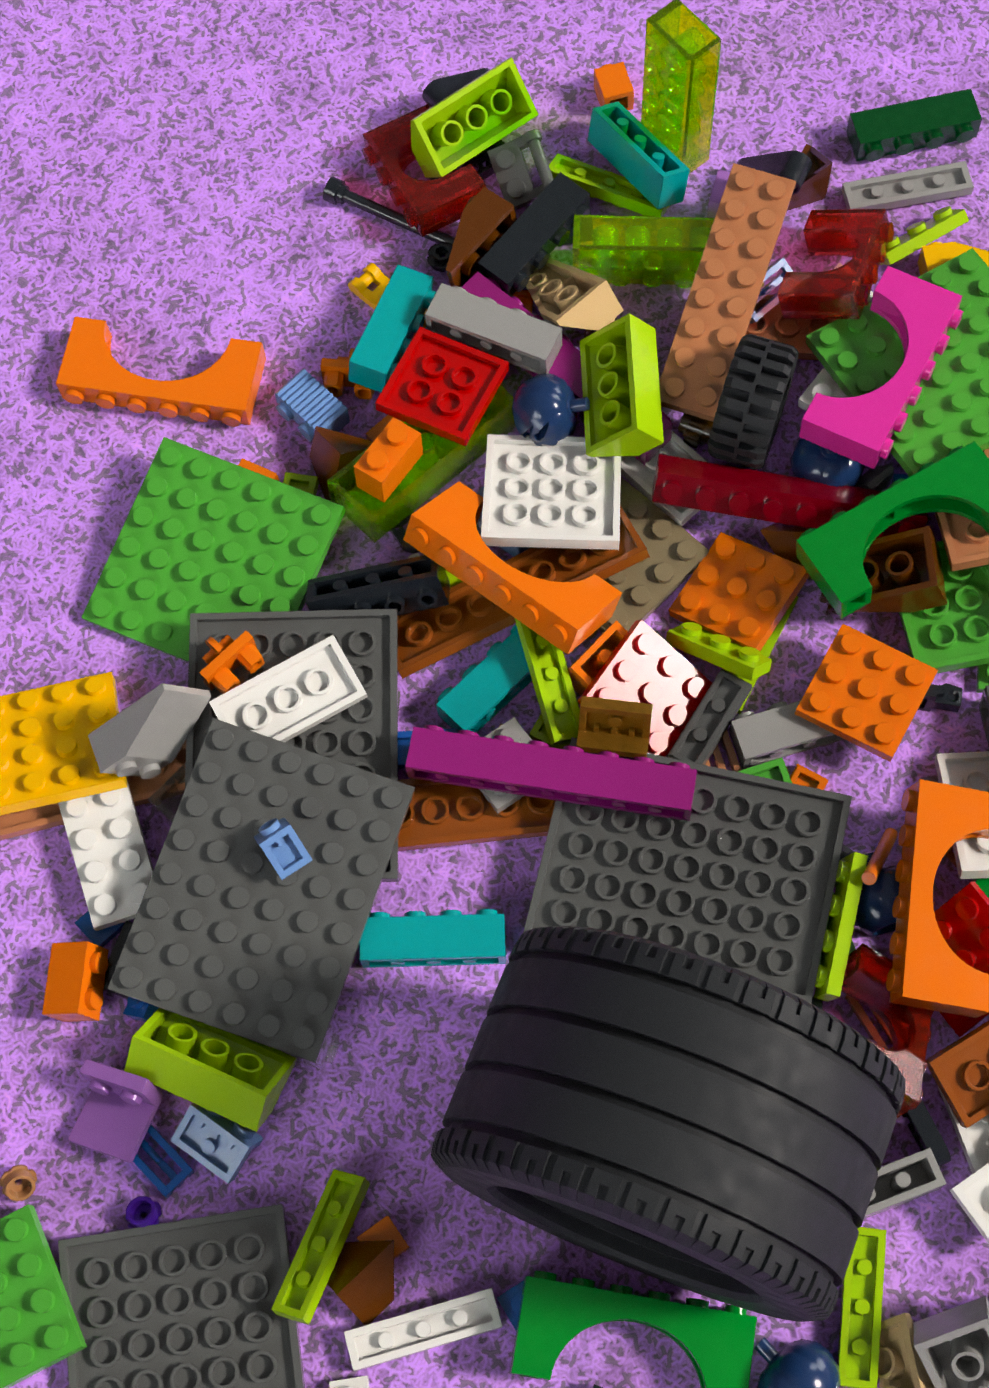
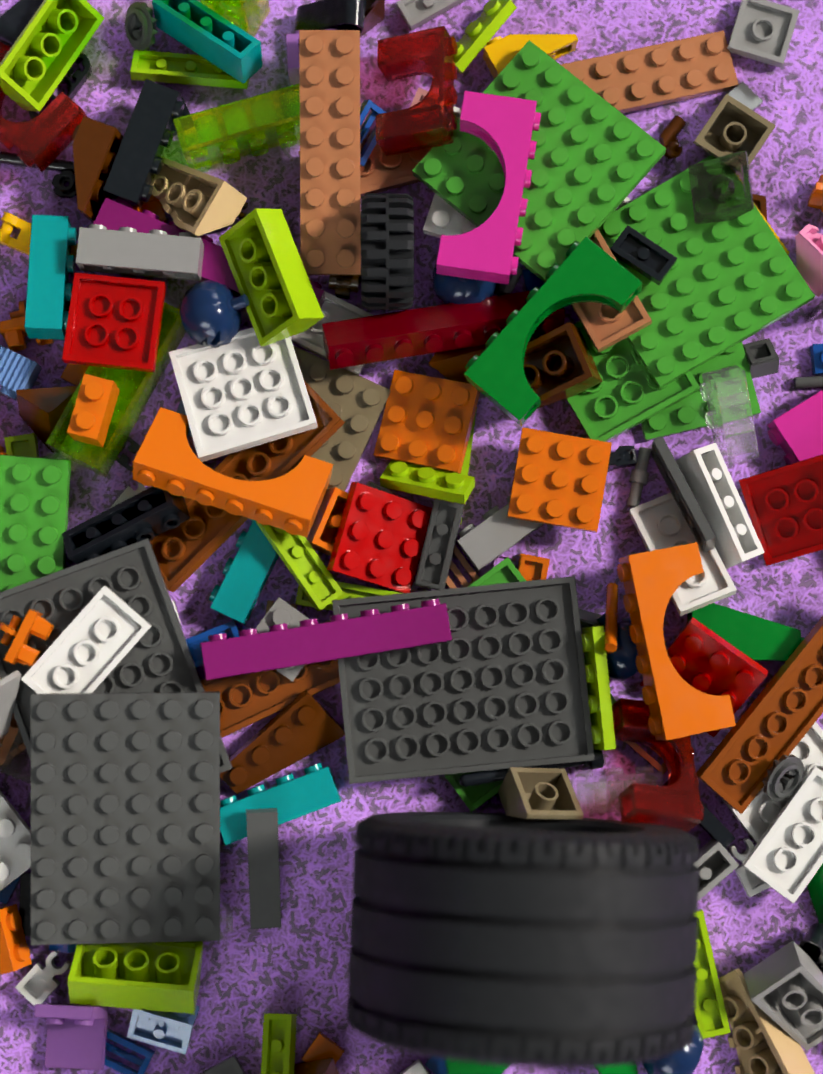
camera: 30 degrees left, 15 degrees up
(102, 1044) = (41, 981): none -> white plate
(282, 847) = (130, 785): medium blue bracket -> none
(392, 1002) = (263, 868): none -> dark grey tile
(469, 874) = (287, 738): none -> reddish brown wing
(513, 171) = (103, 85): dark grey plate -> none
(572, 132) = (140, 16): none -> dark grey gear
(614, 726) = (366, 586): pearl gold bracket -> none
(954, 1217) = (749, 881): none -> white plate
(958, 724) = (639, 477): none -> light grey bar

